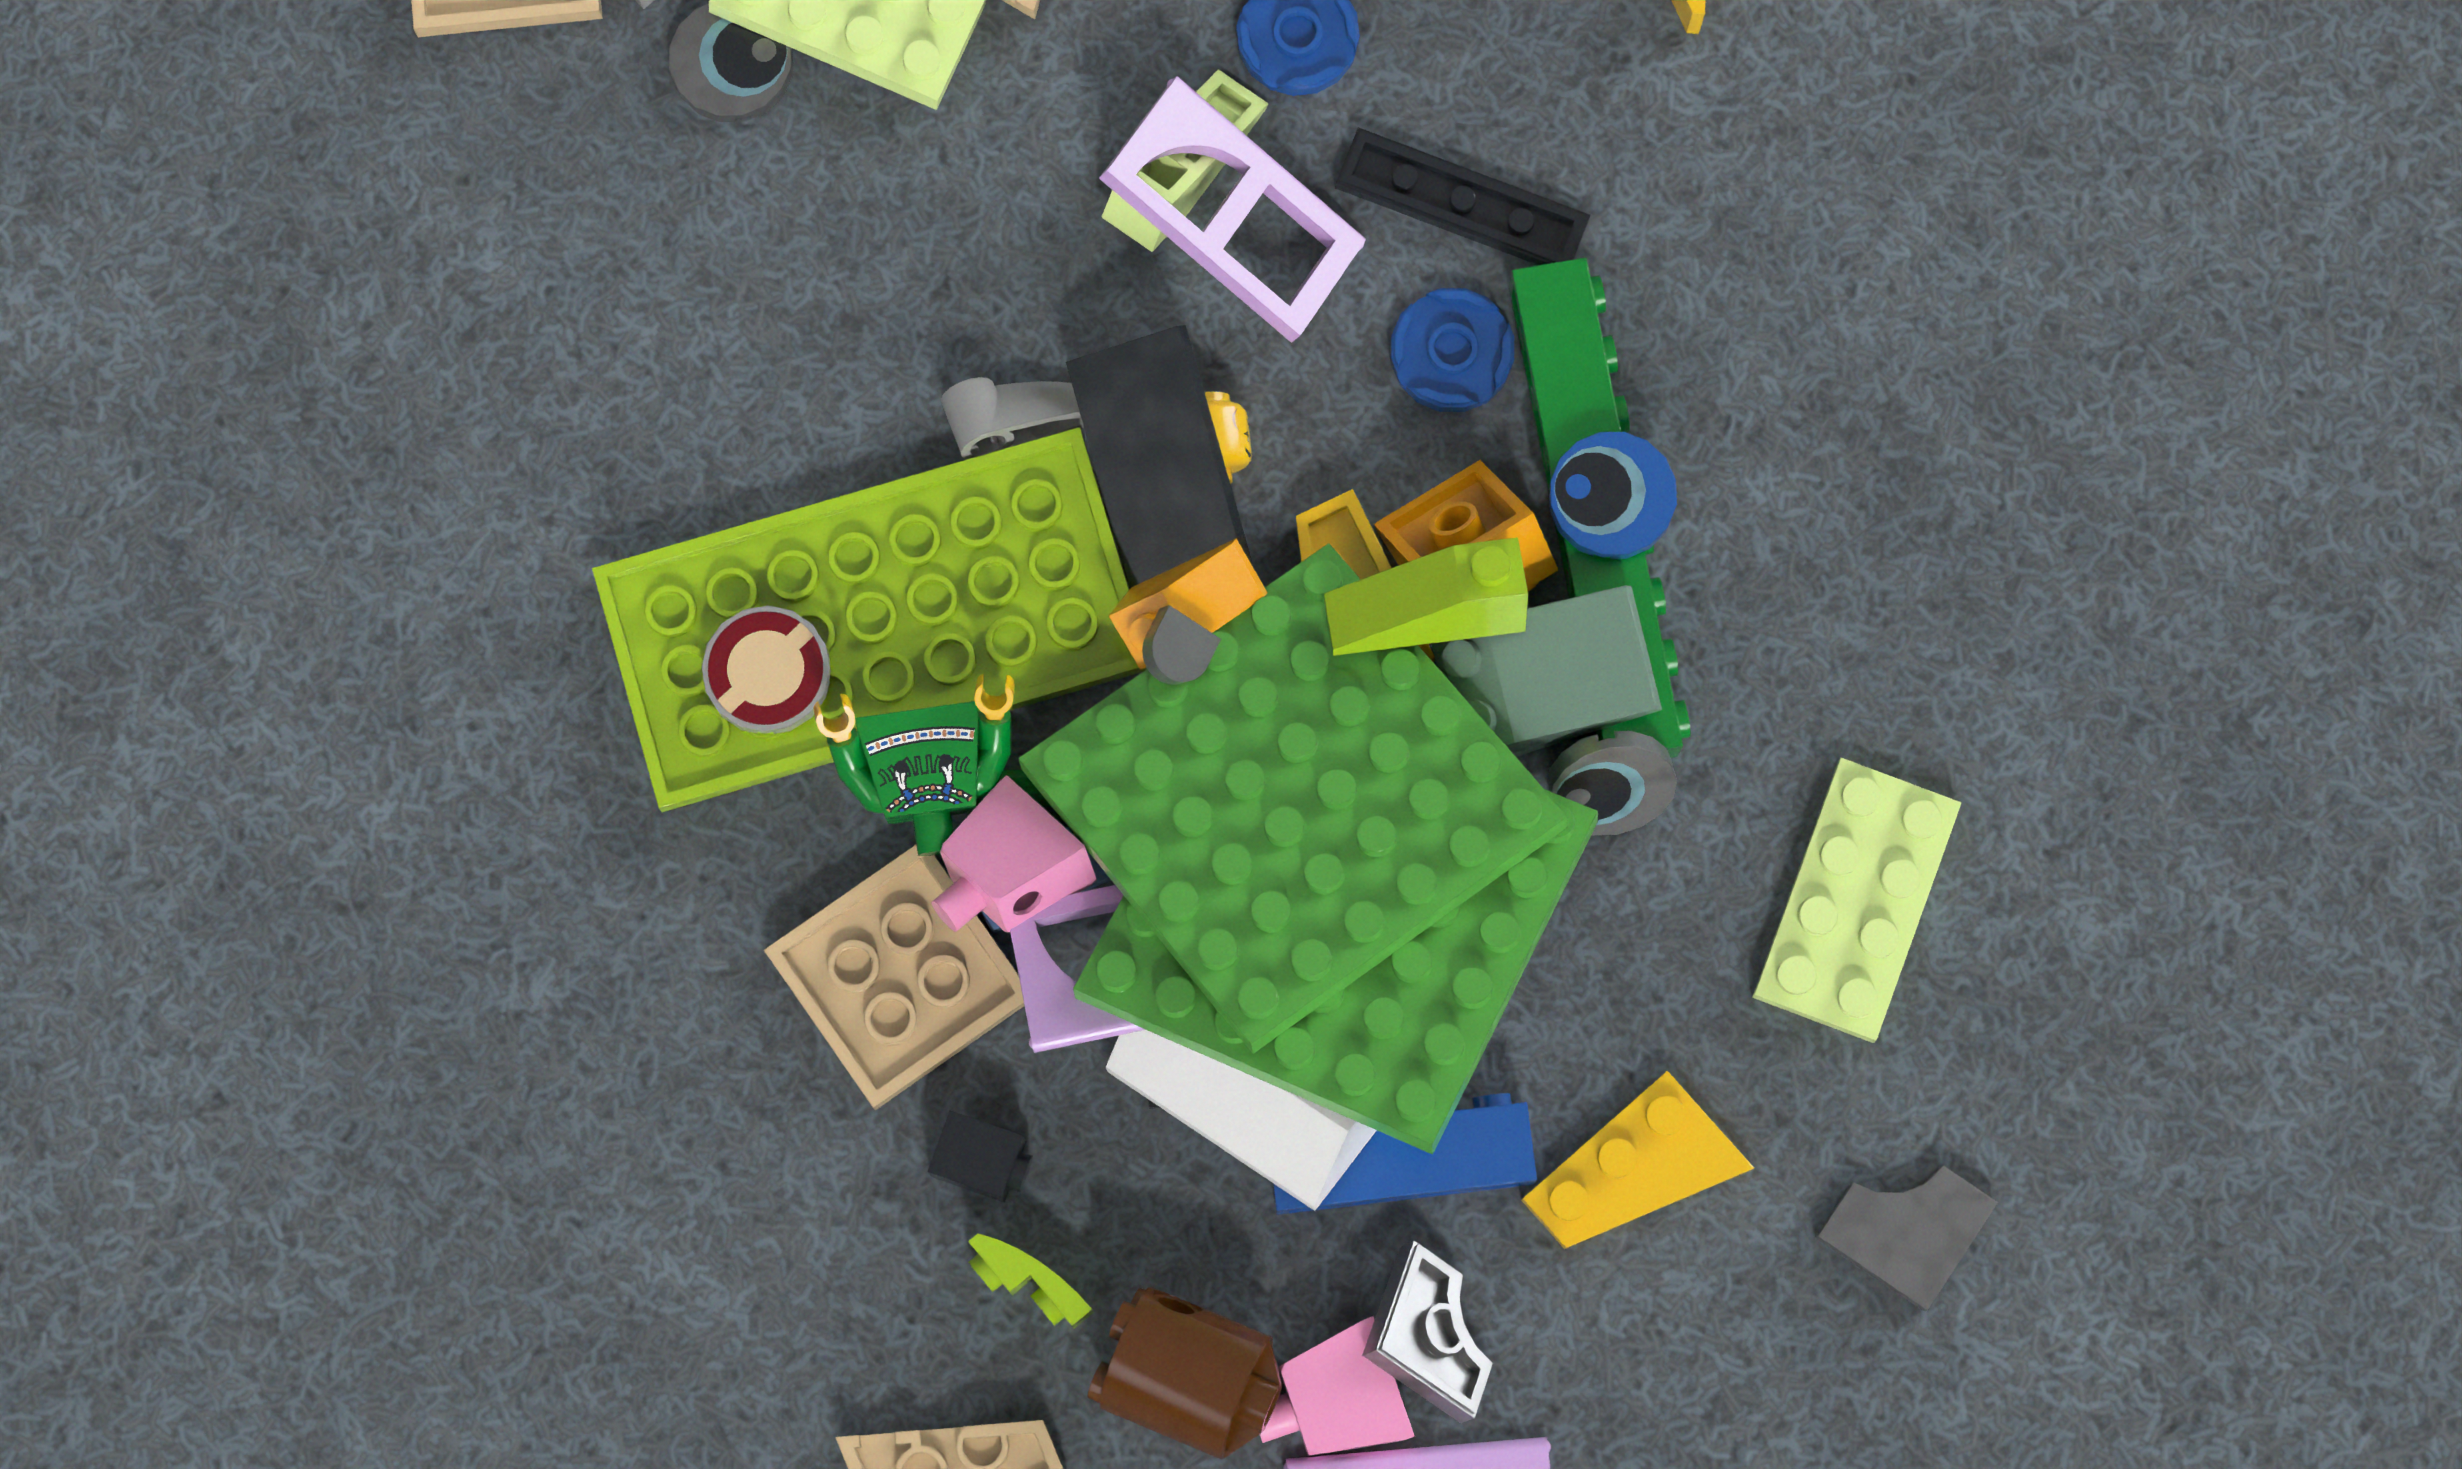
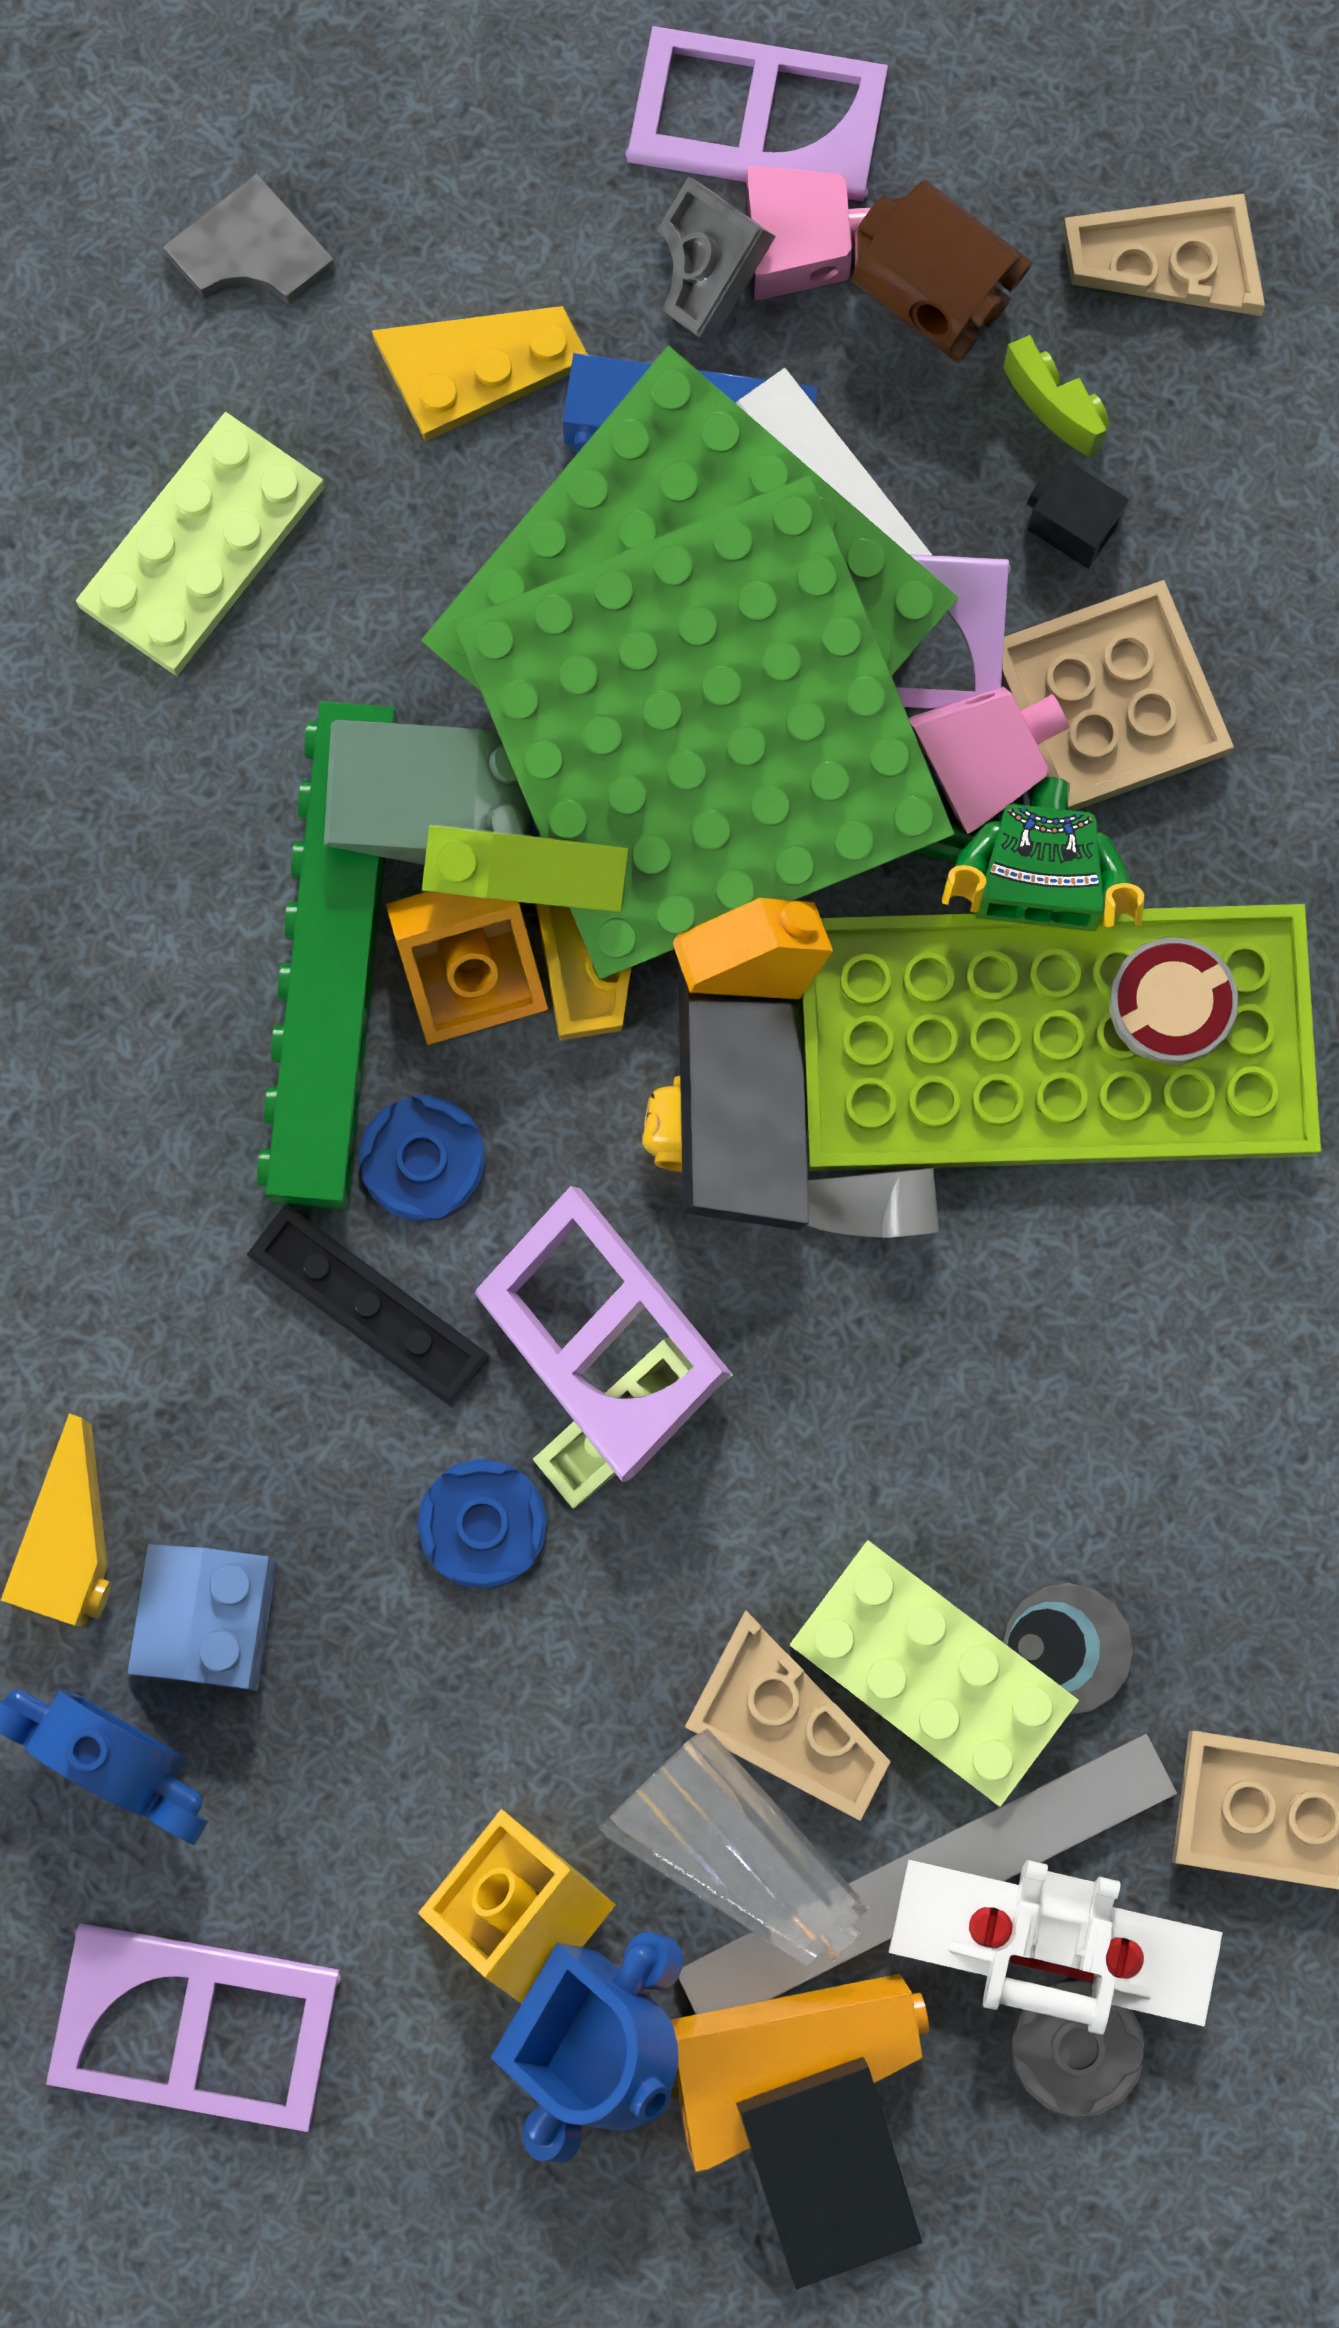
camera: 165 degrees left, 0 degrees up
(1177, 647) = (776, 886): dark grey tile -> none
(1612, 495) = (313, 946): tile -> none
(1620, 777) = (411, 686): flat silver tile -> none

